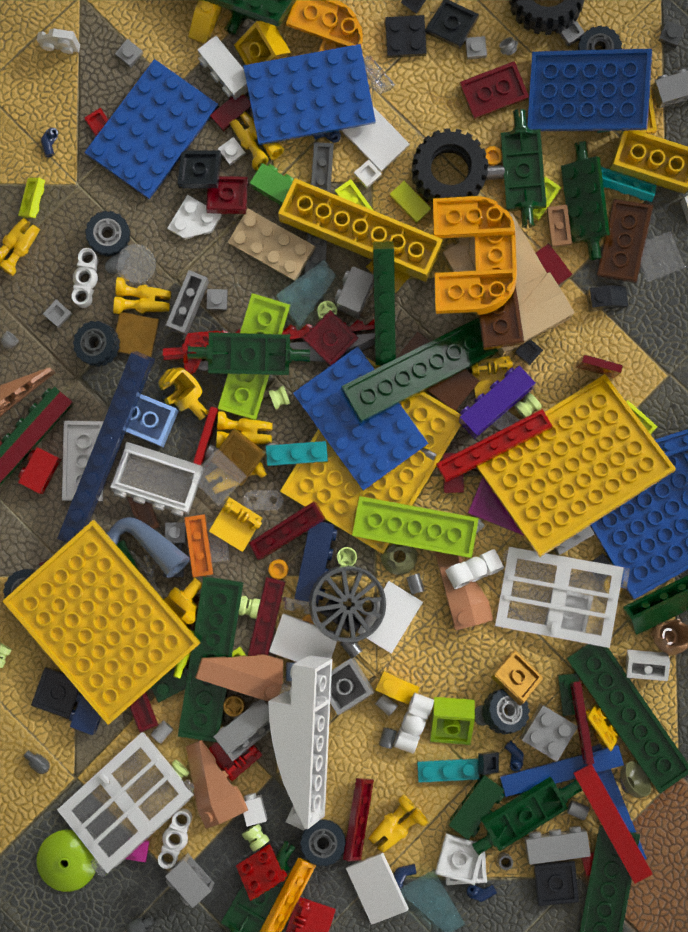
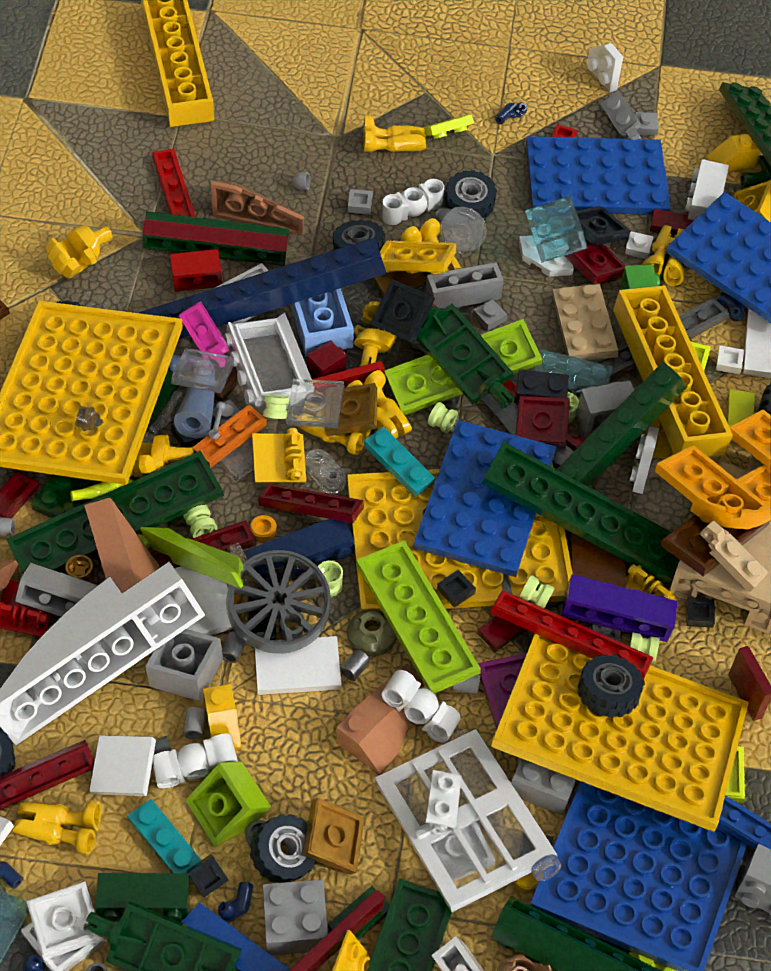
camera: 50 degrees right, 30 degrees down
(111, 509) = (203, 330): none -> dark pink hinge
(113, 67) = (622, 116): none -> light grey hinge
(136, 638) = (88, 418): none -> clear smoke plate
(140, 531) = (203, 370): none -> clear tile
(143, 319) = (417, 256): none -> yellow plate
(181, 438) = (326, 360): none -> dark red brick
(190, 207) = (556, 229): none -> clear light blue brick
(193, 371) = (402, 311): none -> black plate
(193, 557) = (214, 434): none -> light grey hinge
(201, 503) = (276, 406): none -> yellowish green wheel
(280, 631) = (196, 555): none -> lime wedge
(307, 318) = (542, 384): none -> black plate
(387, 766) = (122, 765): none -> white tile
(408, 299) = (645, 454): none -> white plate
(413, 489) = (456, 588): none -> black plate
(452, 443) = (536, 592): none -> yellowish green wheel
(528, 316) = (733, 556): none -> tan hinge
(548, 443) = (610, 686): none -> black wheel
(548, 605) = (443, 801): none -> white hinge

